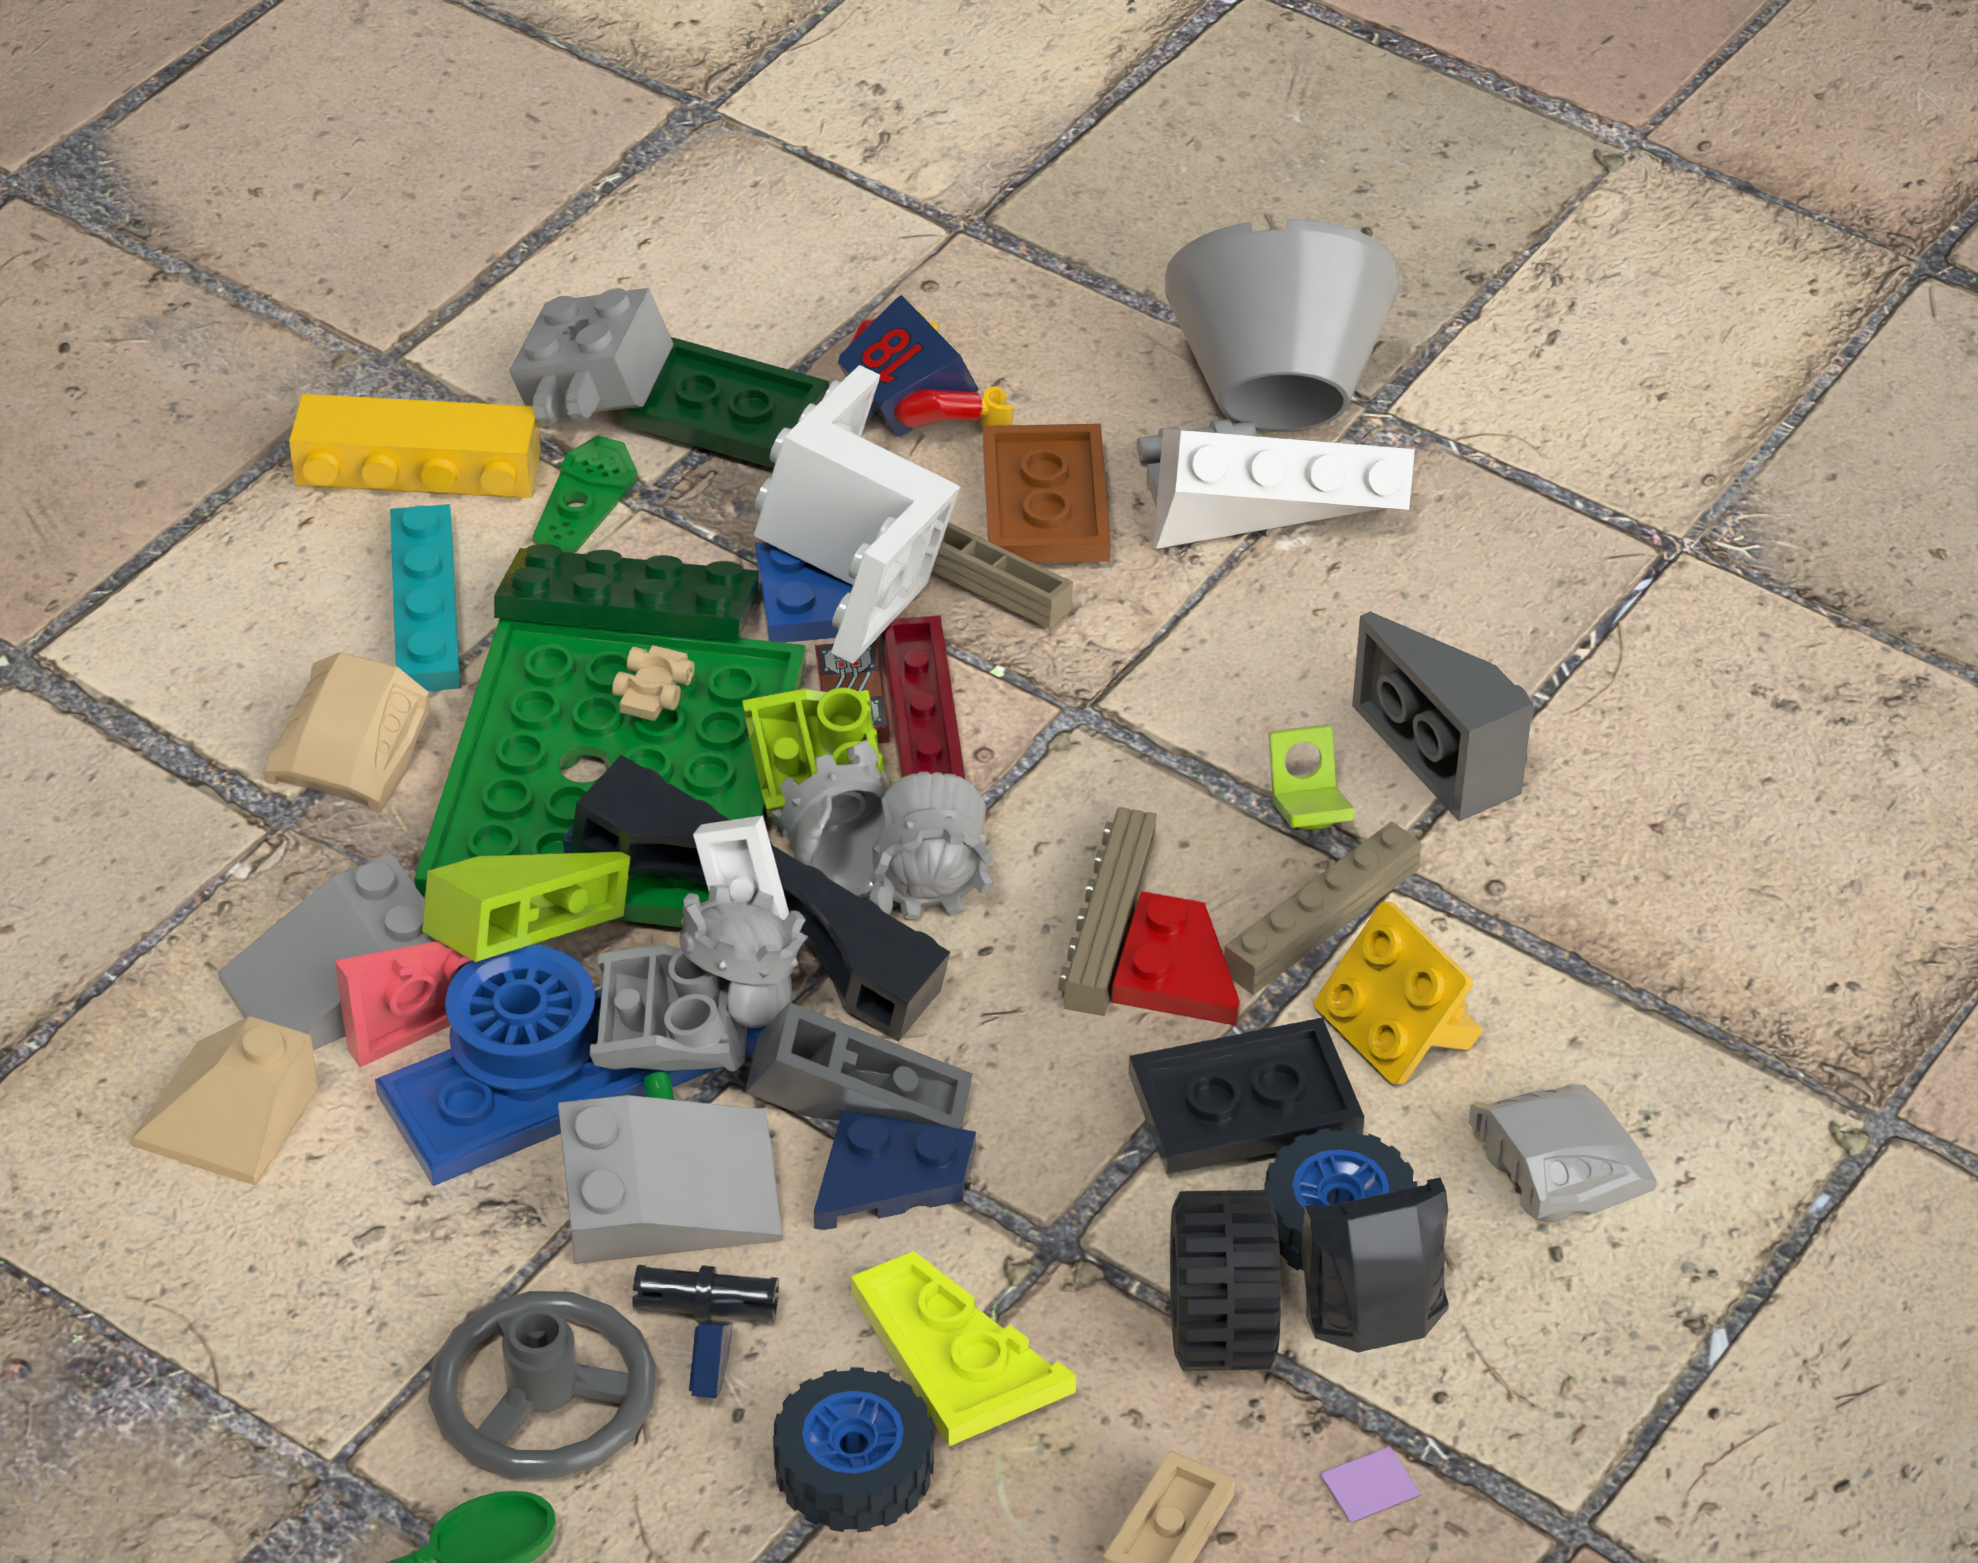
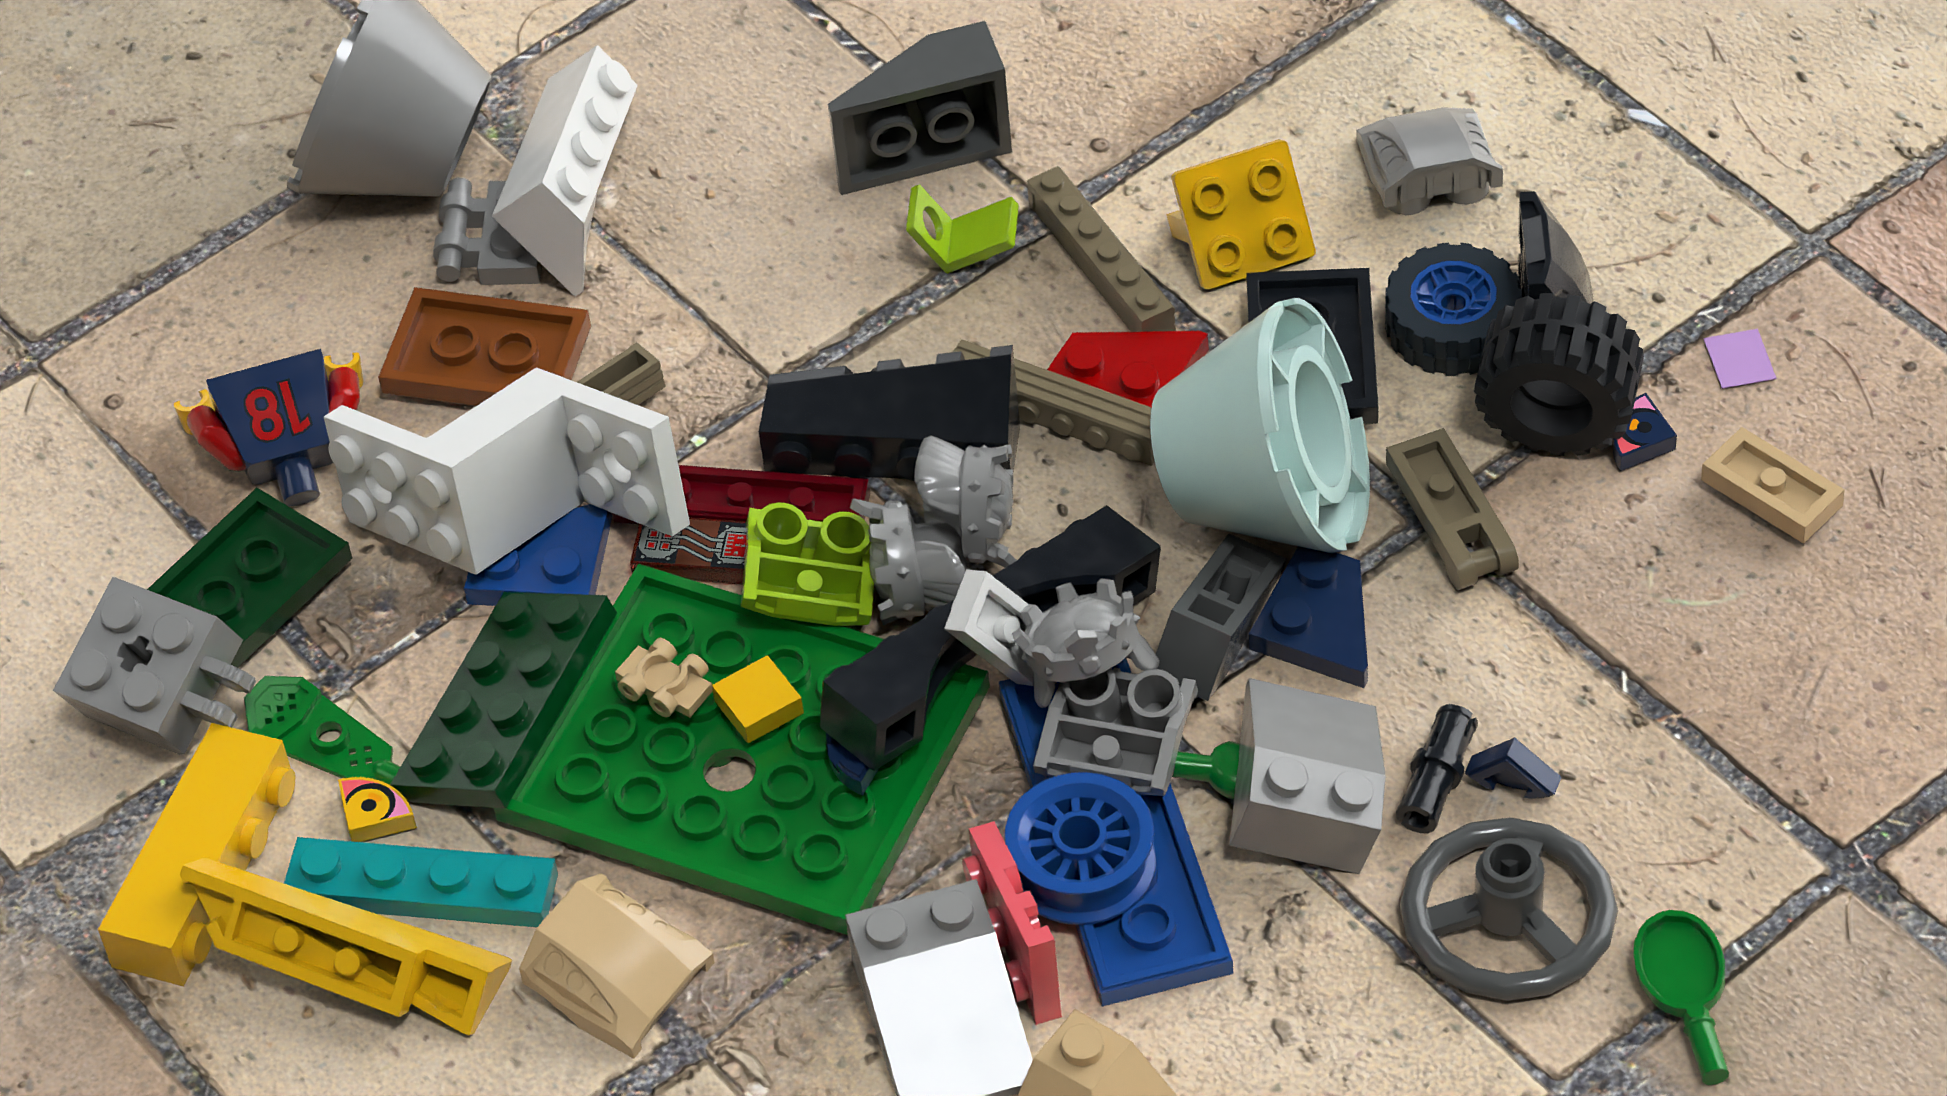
camera: 70 degrees left, 5 degrees up
(328, 552) = (346, 947): none -> yellow wedge
(495, 546) = (374, 808): none -> yellow tile
(521, 900) = (968, 812): lime slope -> none
(655, 746) = (757, 699): none -> yellow tile
(853, 1449) = (1644, 685): black wheel -> none
(953, 1352) = (1555, 599): neon yellow wing -> none
(1028, 790) = (878, 418): none -> black wedge
(1055, 1248) = (1451, 507): none -> dark tan plate
(1064, 1111) = (1265, 436): none -> light aqua cone
(1219, 1400) = (1645, 436): none -> dark blue tile

